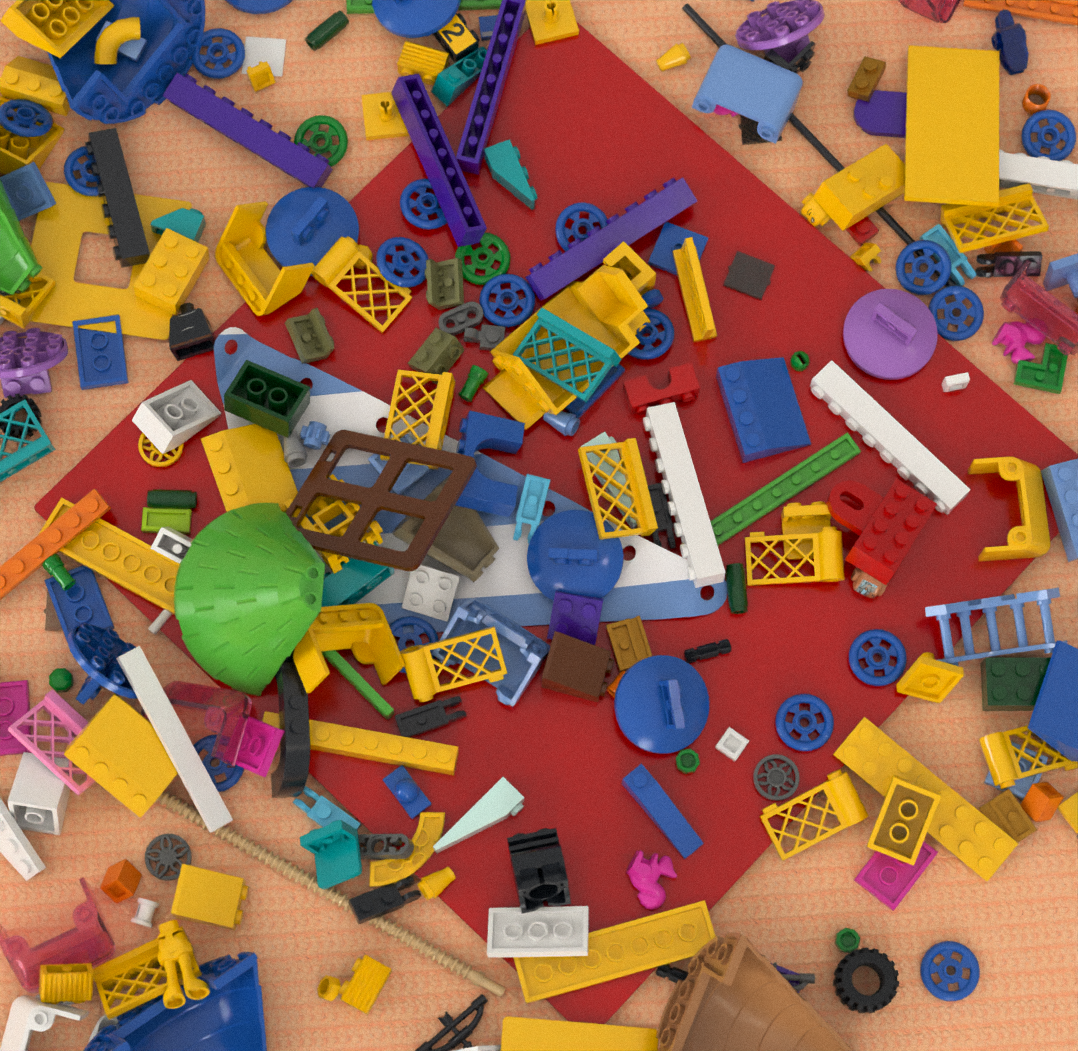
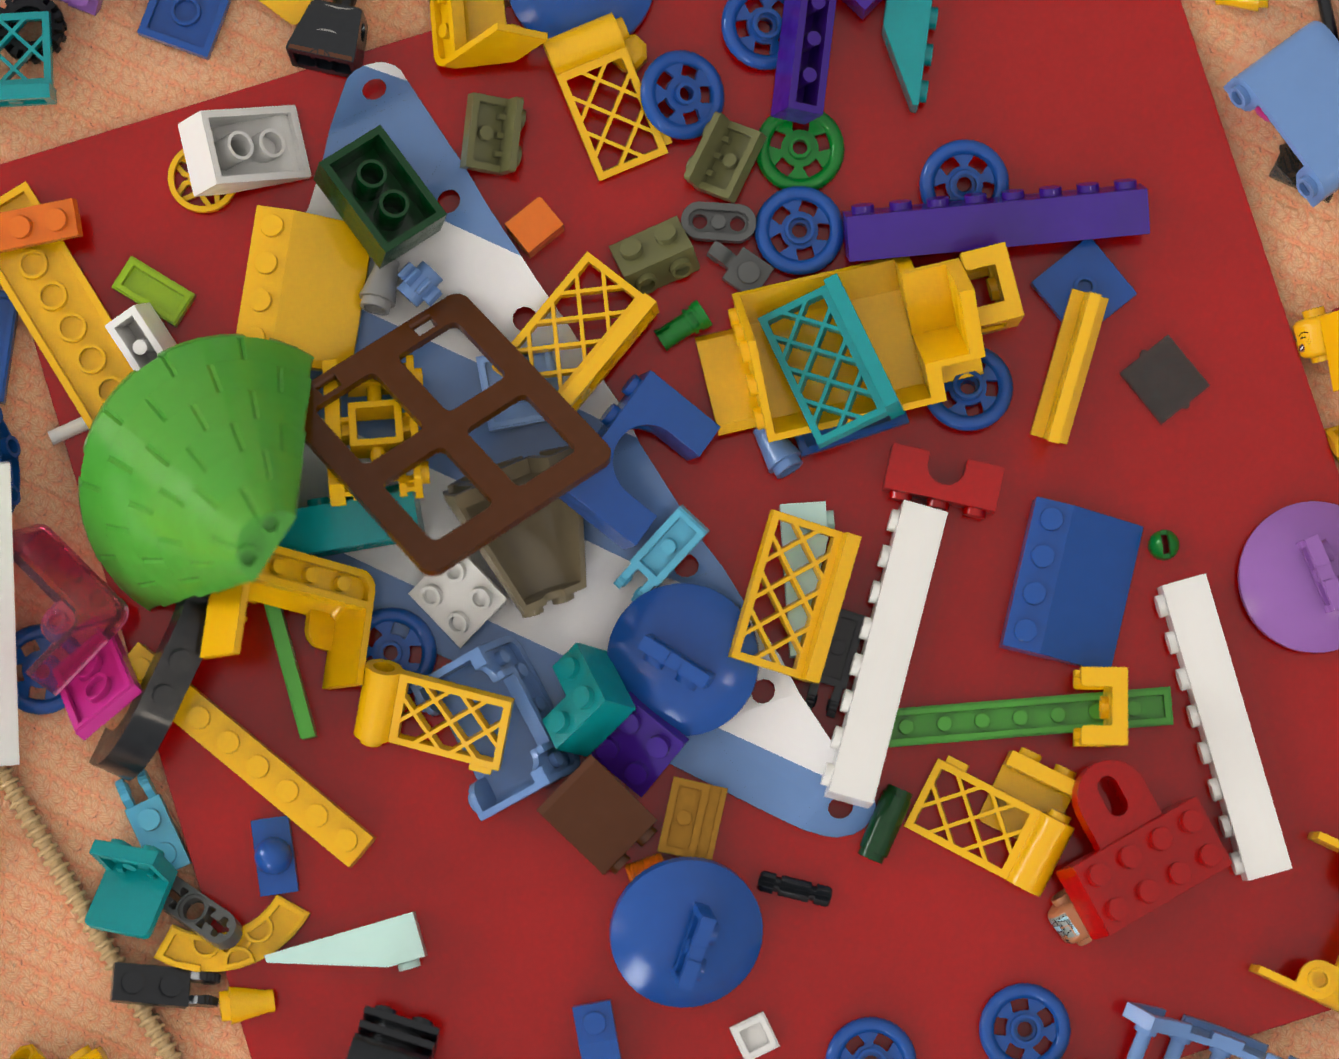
camera: 30 degrees right, 10 degrees up
(171, 499) = (176, 265): dark green piece -> none
(361, 373) = (534, 227): none -> orange panel
(428, 717) = (357, 769): black hinge -> none
(539, 606) = (593, 701): none -> teal brick
(652, 298) = (1003, 340): blue tile -> none
(687, 761) = (679, 1027): green tile -> none
(830, 464) = (1112, 706): none -> yellow panel

